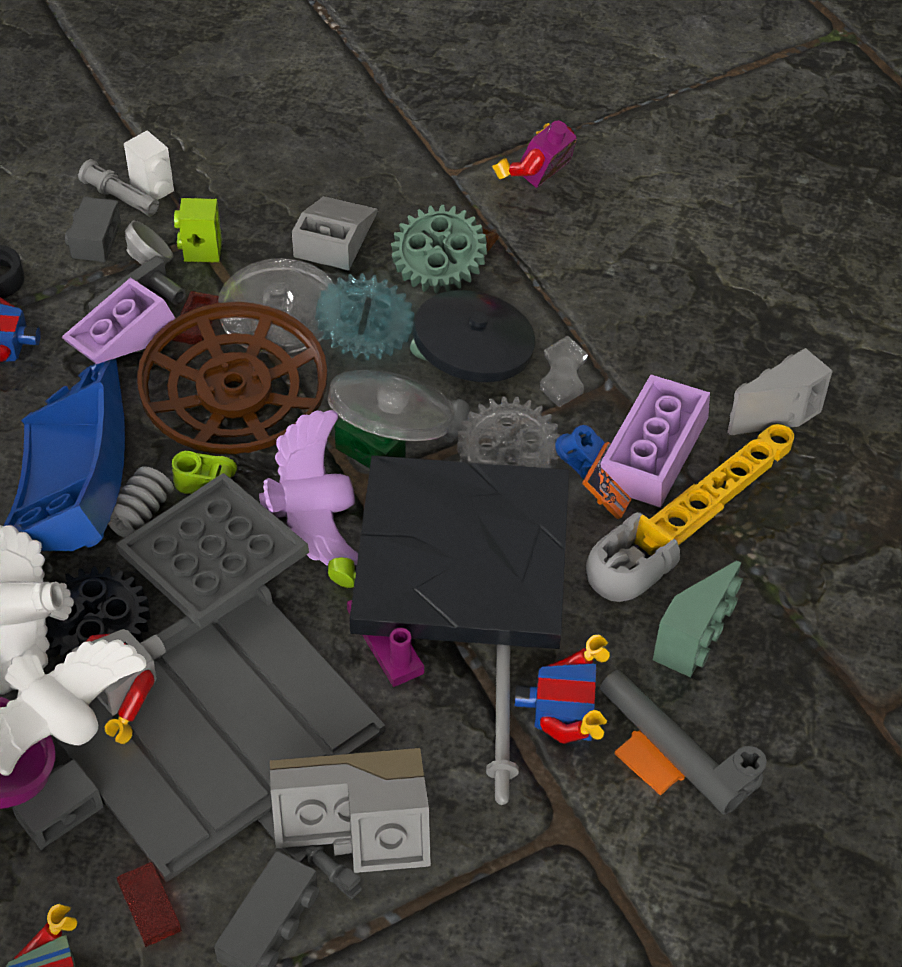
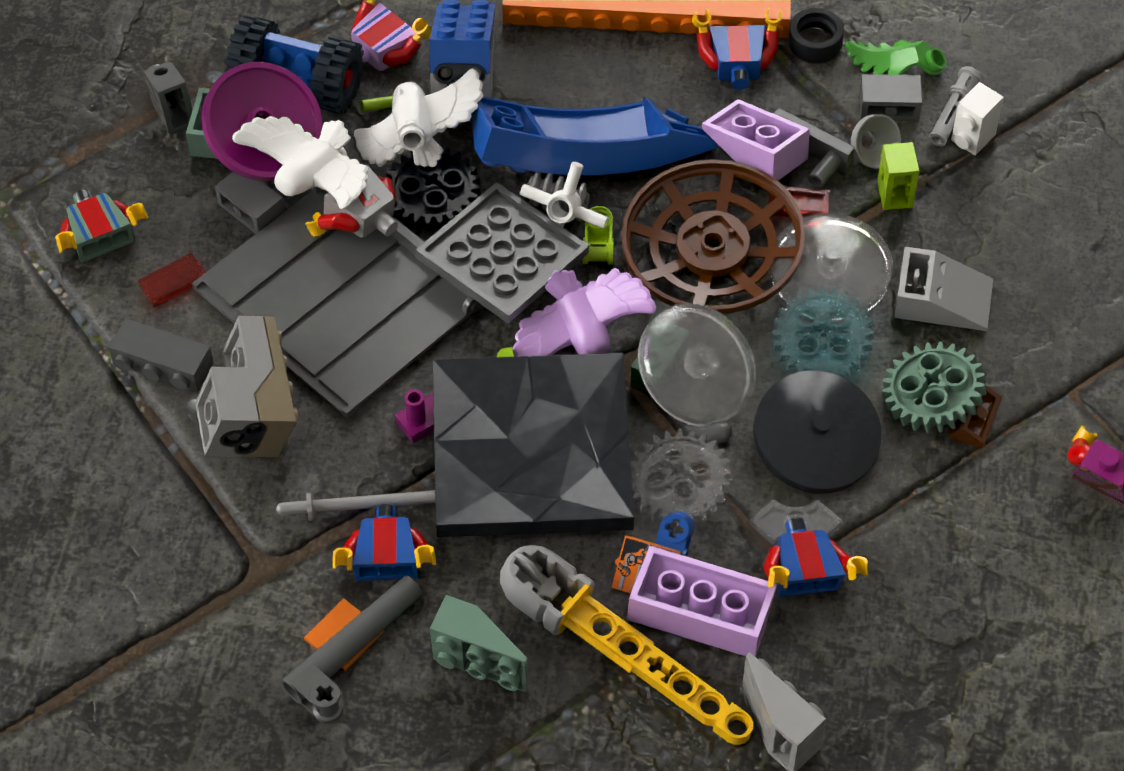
camera: 85 degrees right, 5 degrees up
(43, 220) = (897, 58): none -> bright green plant
(167, 482) = (569, 196): none -> white bar
(618, 357) = (809, 562): none -> torso

